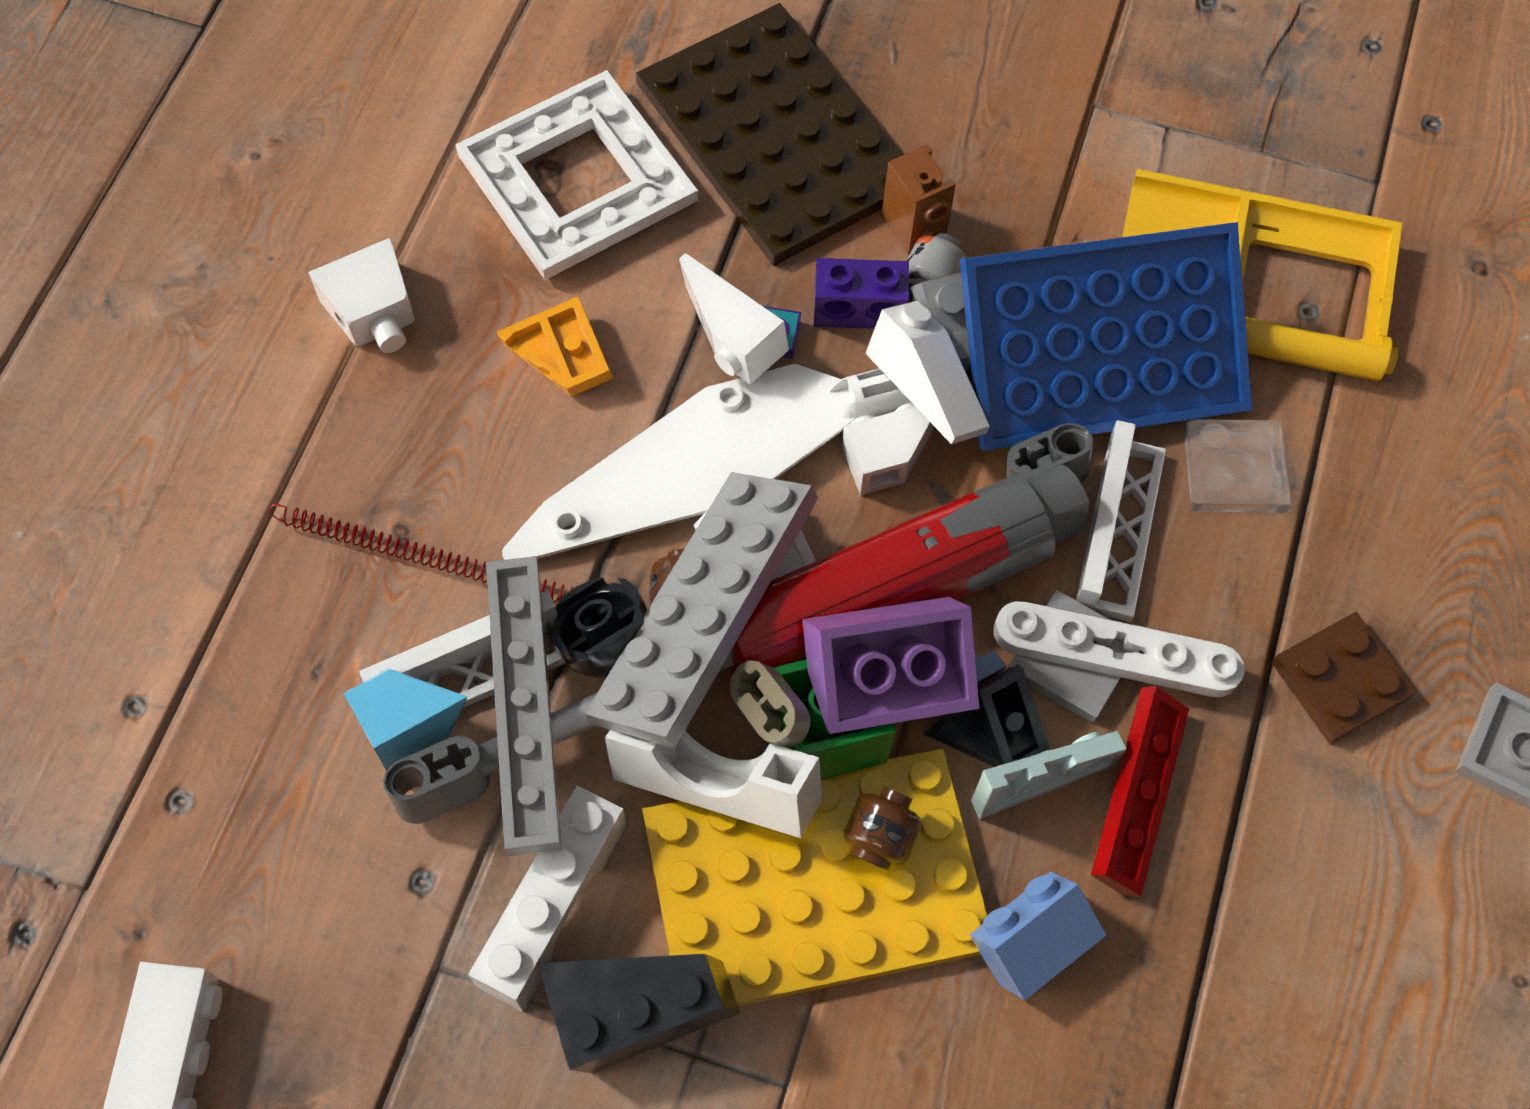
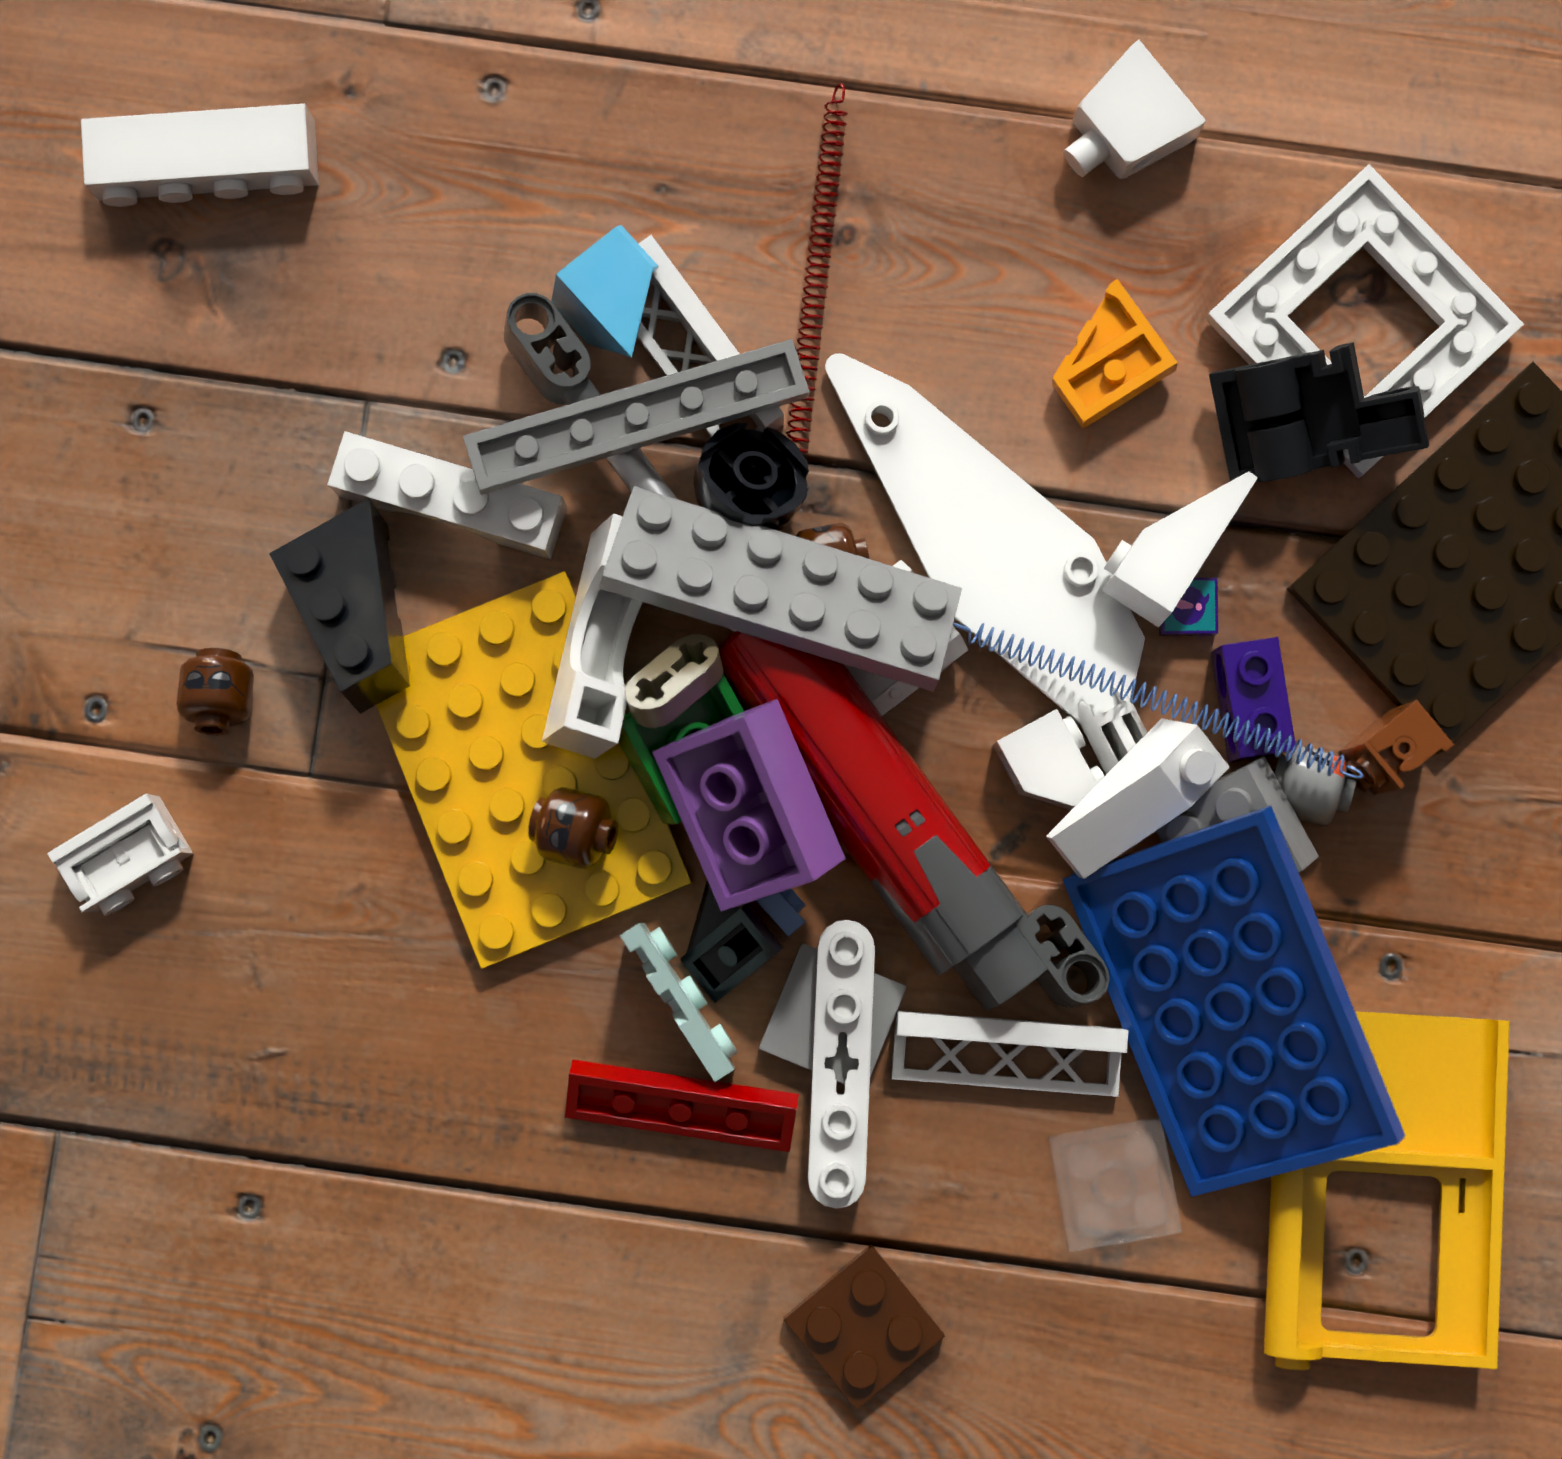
camera: 80 degrees right, 20 degrees up
(644, 209) = (1302, 414): none -> black plate
(843, 372) = (1163, 695): none -> medium blue piece
(1037, 934) = (495, 1009): medium blue brick -> none

